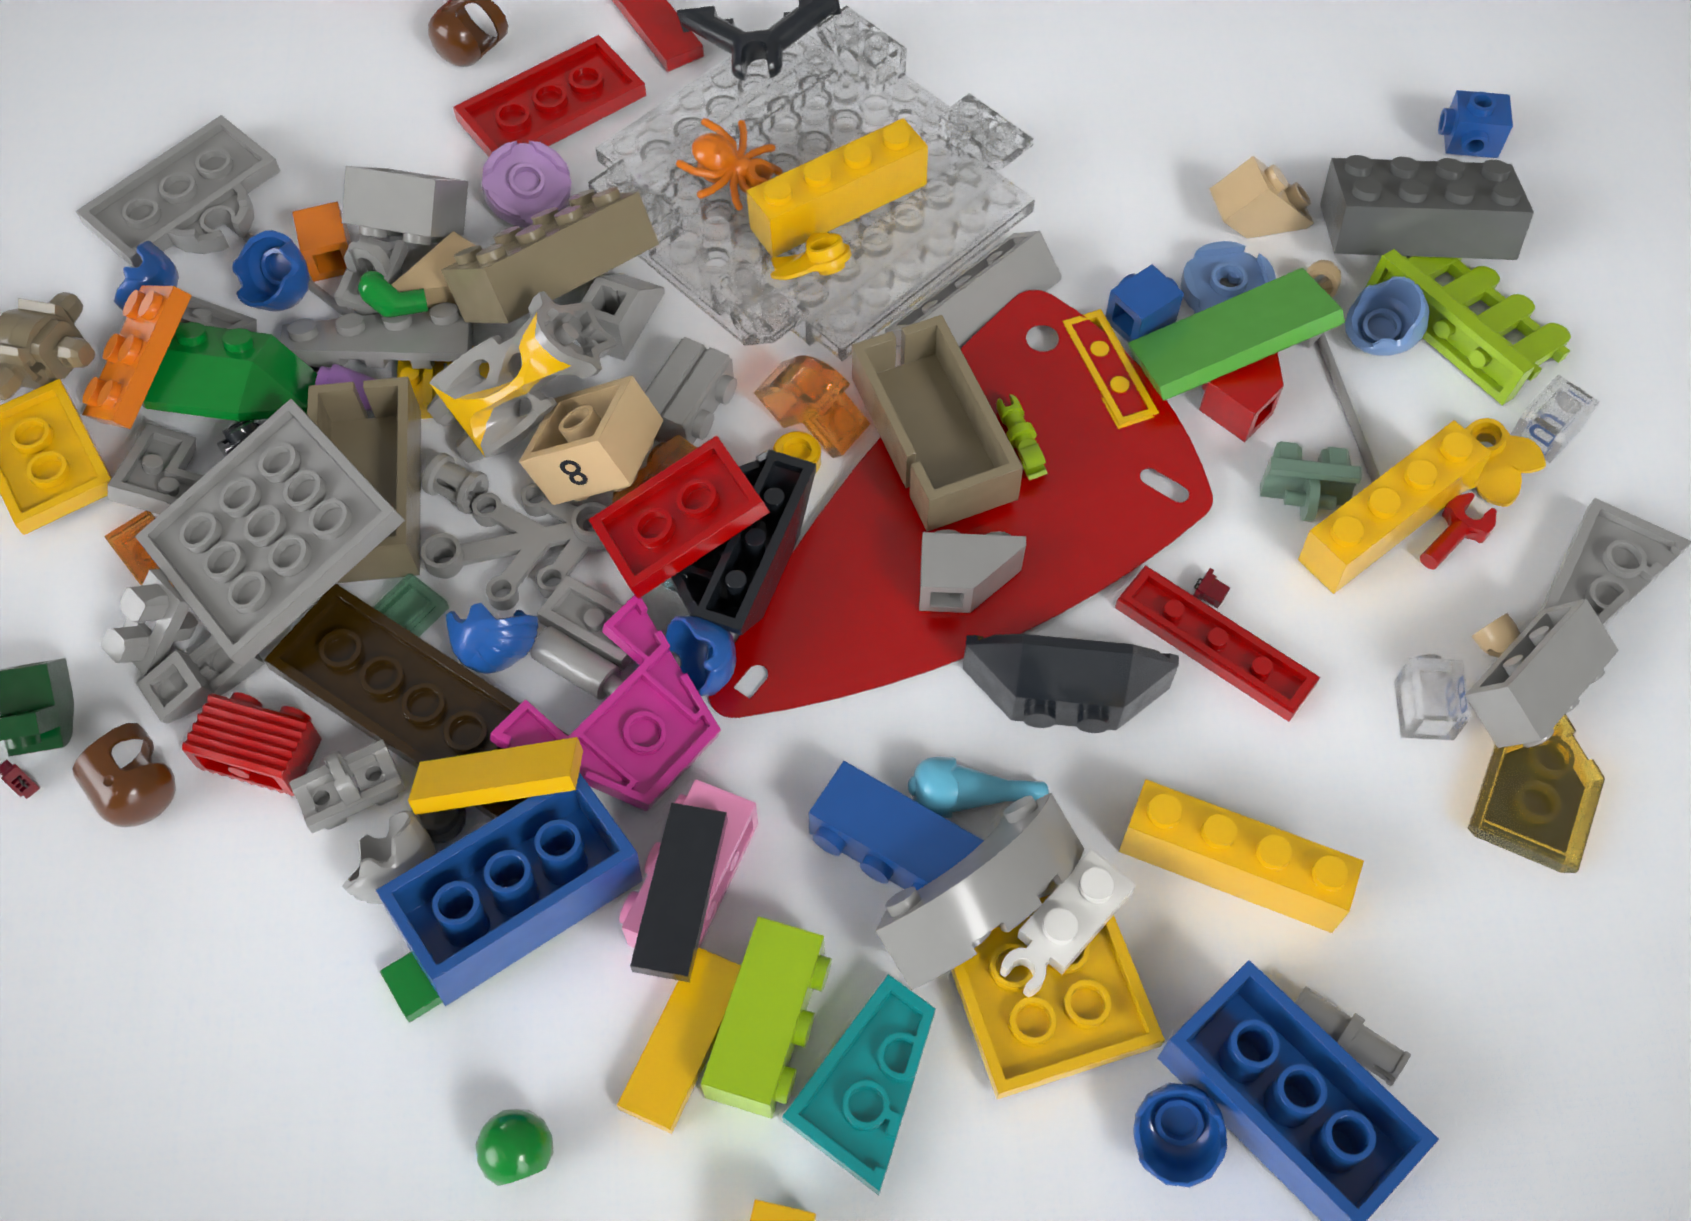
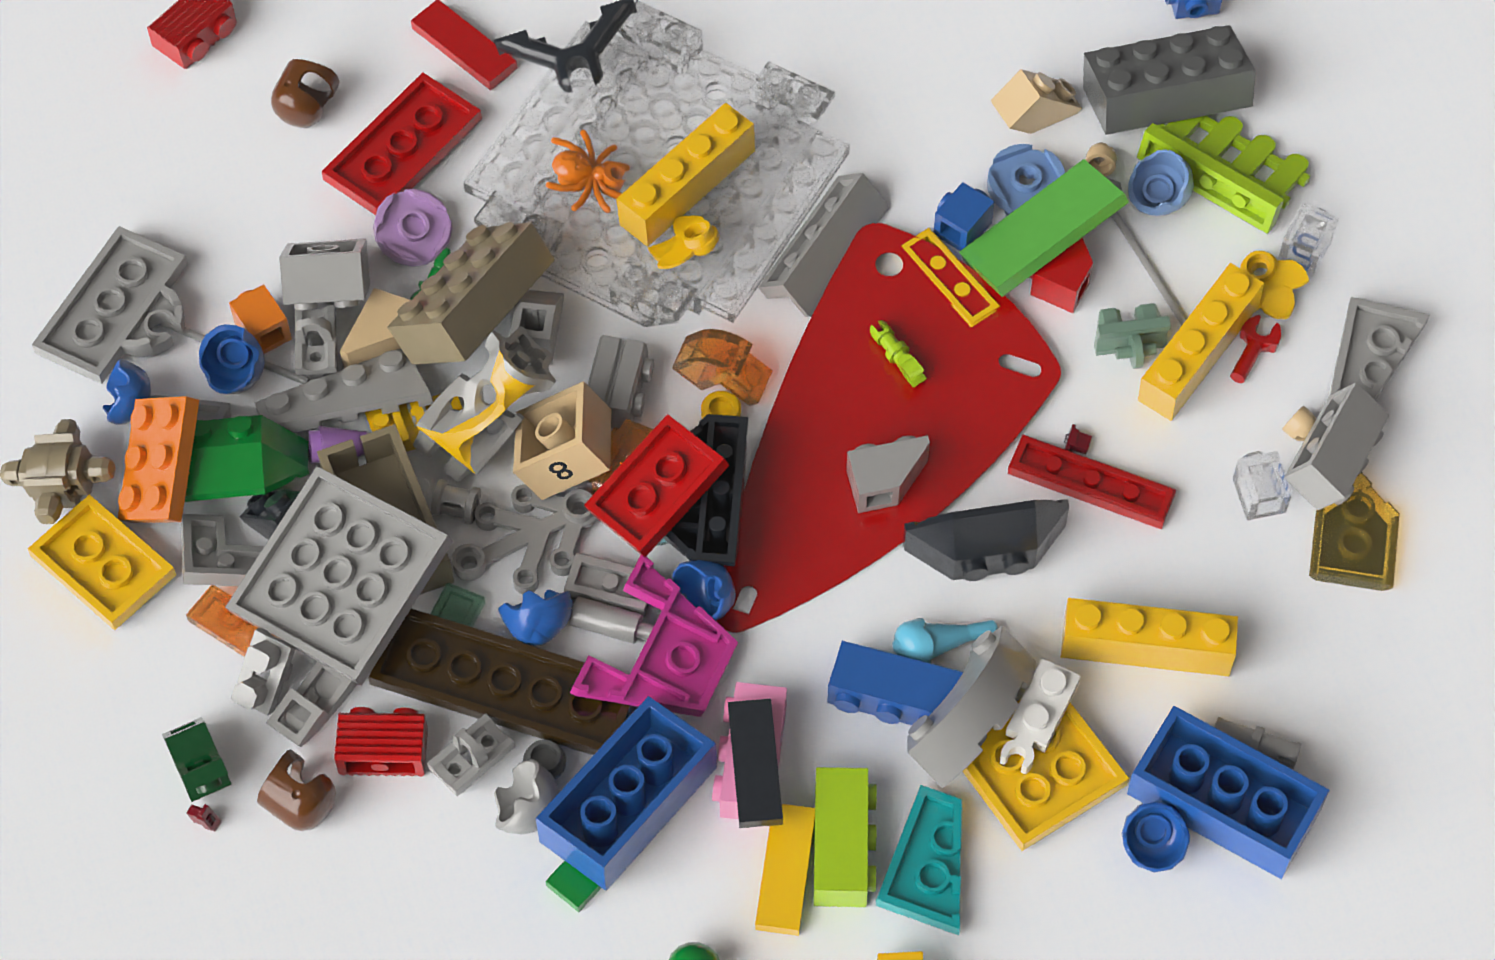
camera: 15 degrees left, 0 degrees up
(387, 299) = (344, 361): green arm -> none
(496, 776) = (589, 716): yellow tile -> none
(936, 423) = (829, 359): dark tan piece -> none

